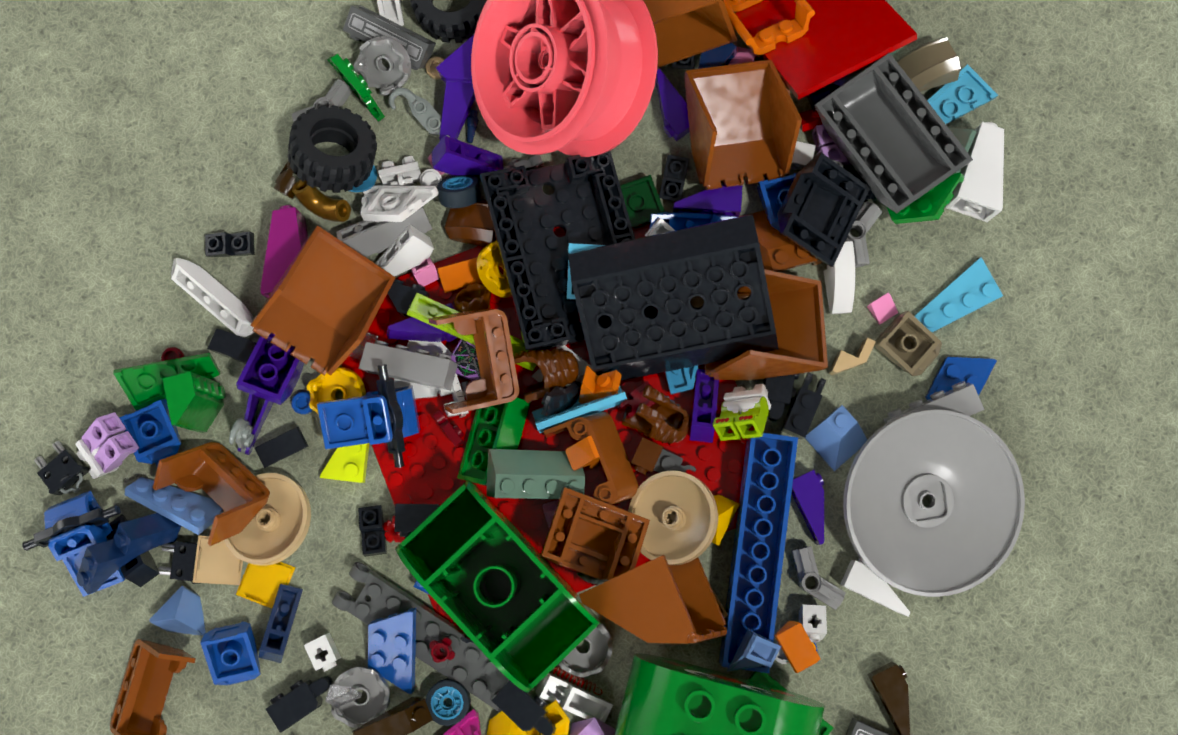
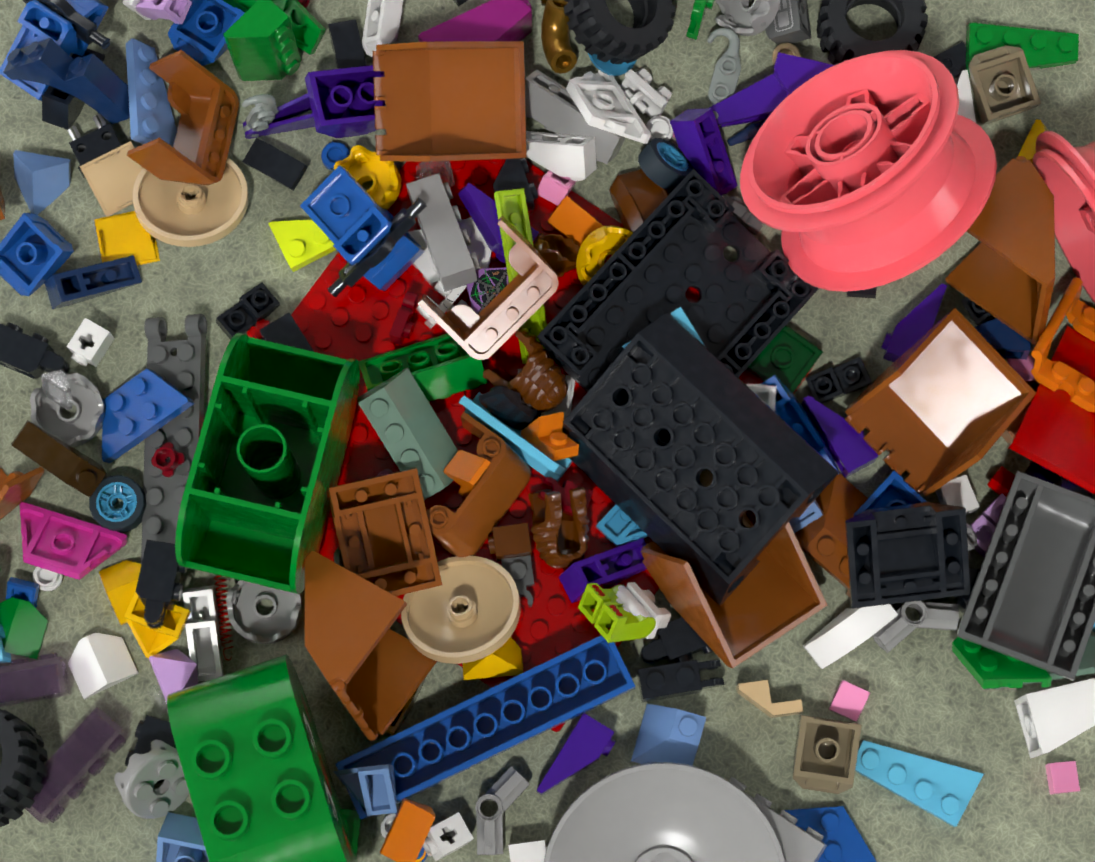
camera: 55 degrees right, 5 degrees down
(1012, 211) = (1062, 777): none -> bright pink slope

